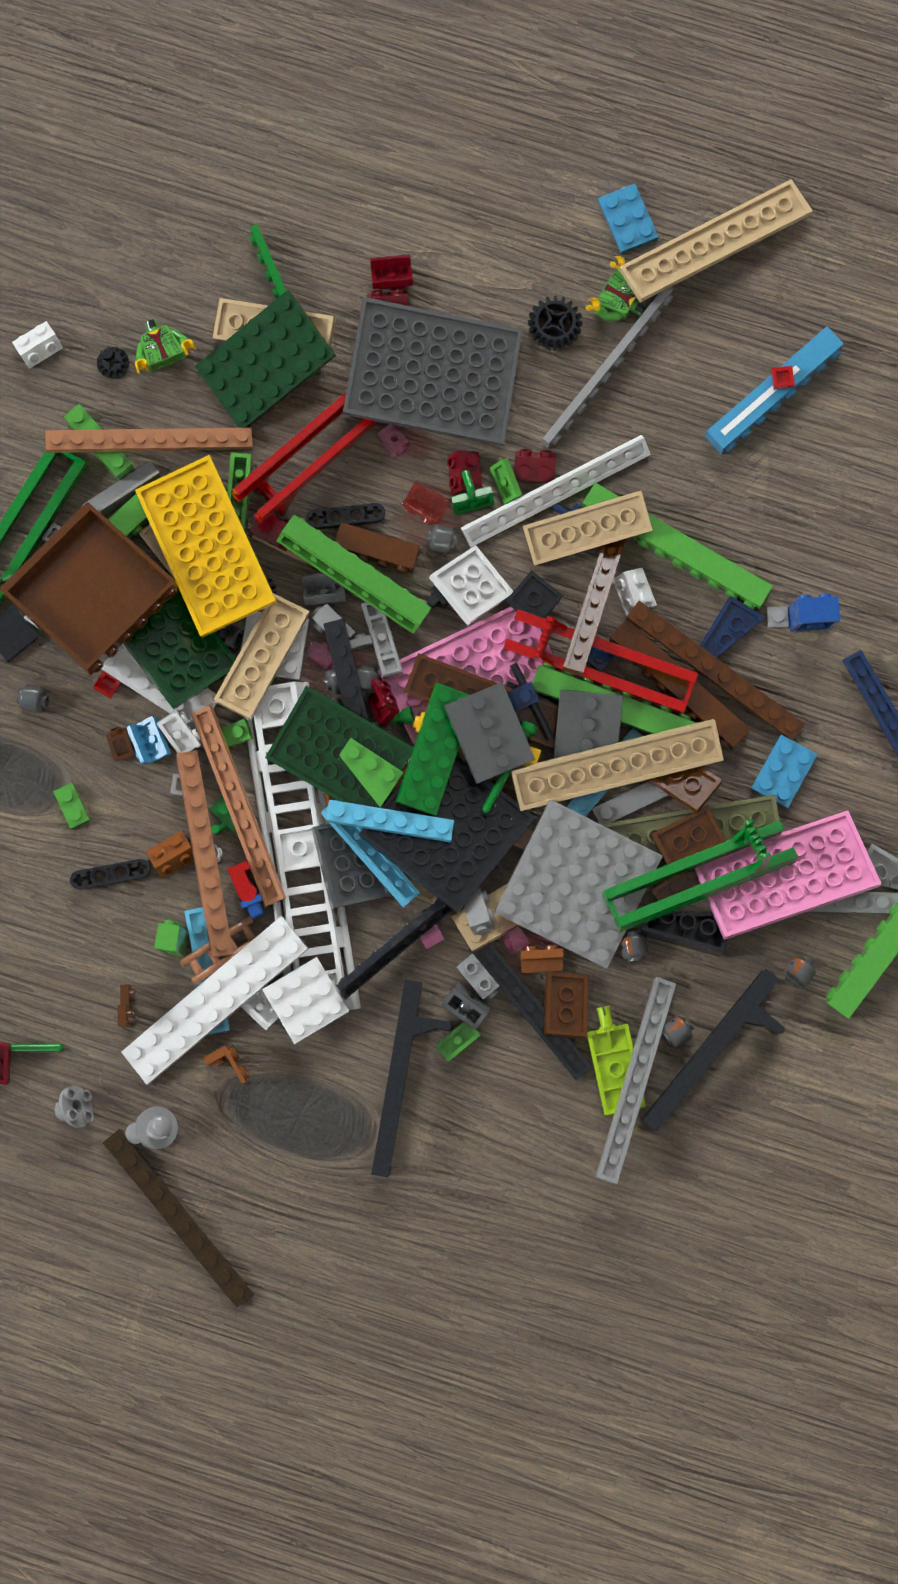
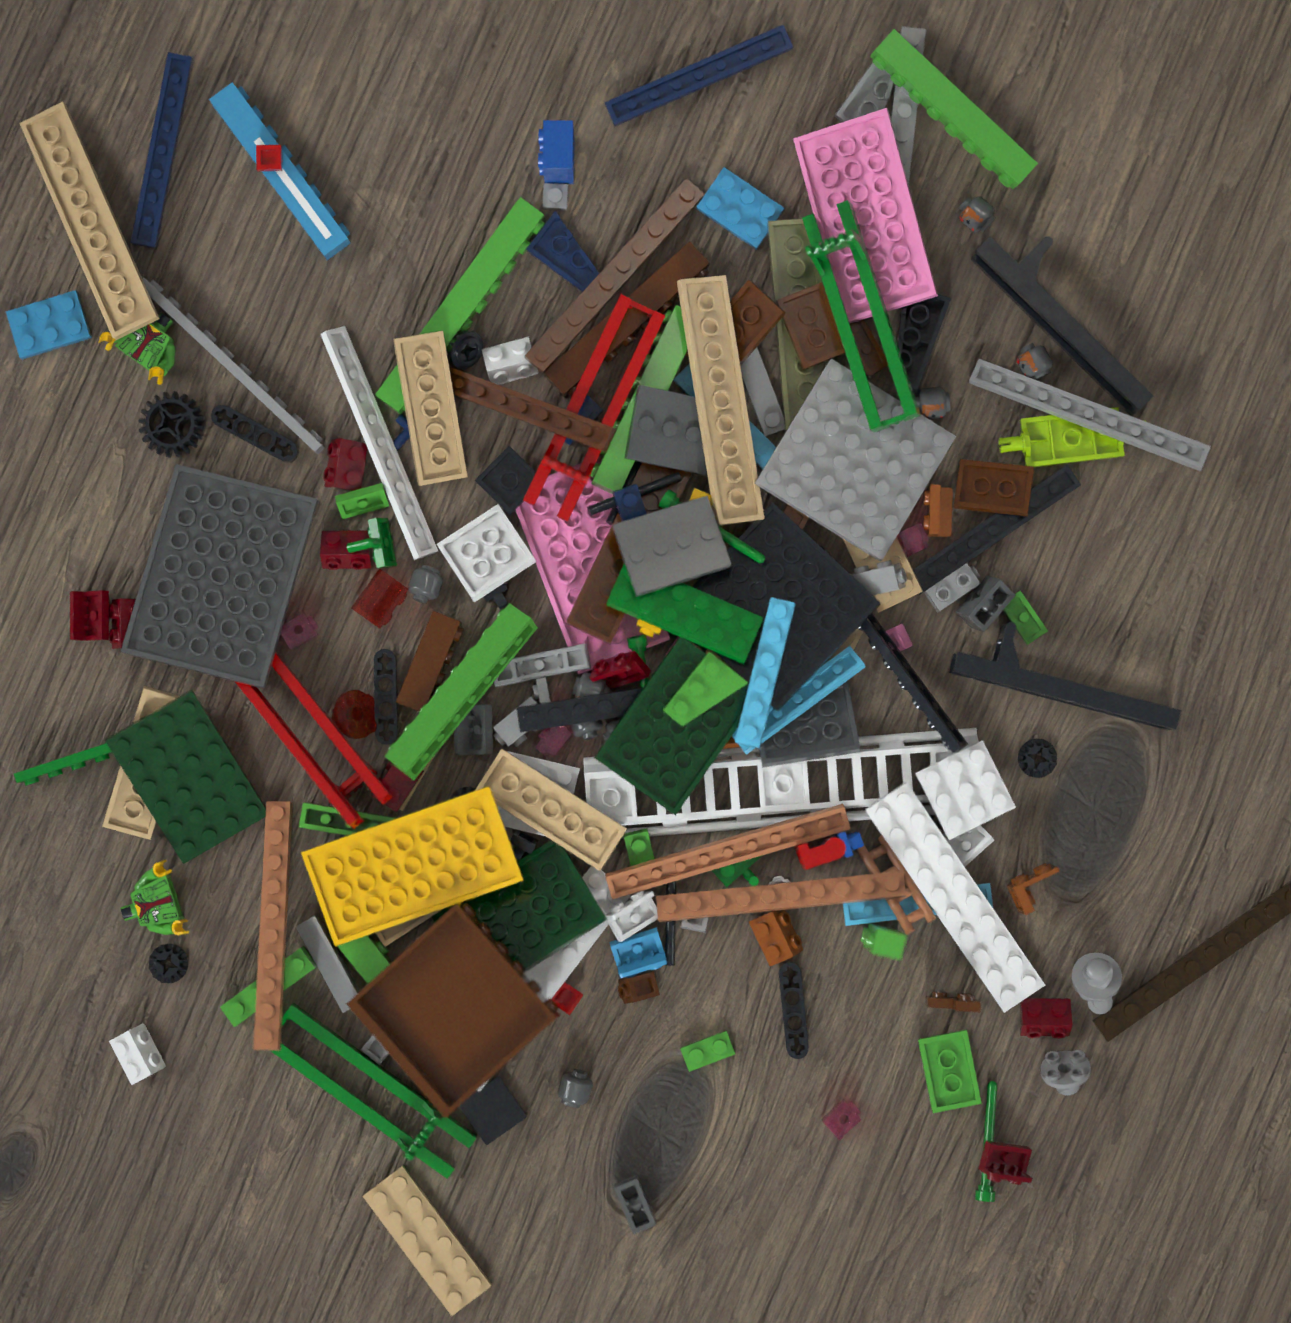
camera: 80 degrees left, 5 degrees up
(30, 922) = (832, 1121): none -> clear pink brick
(68, 1009) = (949, 1071): none -> bright green plate
(119, 1087) = (1046, 1017): none -> dark red bracket
(169, 766) = (670, 930): none -> black bar
(328, 490) = (355, 714): none -> clear red plate
(347, 1057) = (1027, 763): none -> black gear
(552, 390) = (254, 434): none -> black beam
(636, 559) = (471, 354): none -> black gear
(781, 294) = (162, 150): none -> dark blue plate

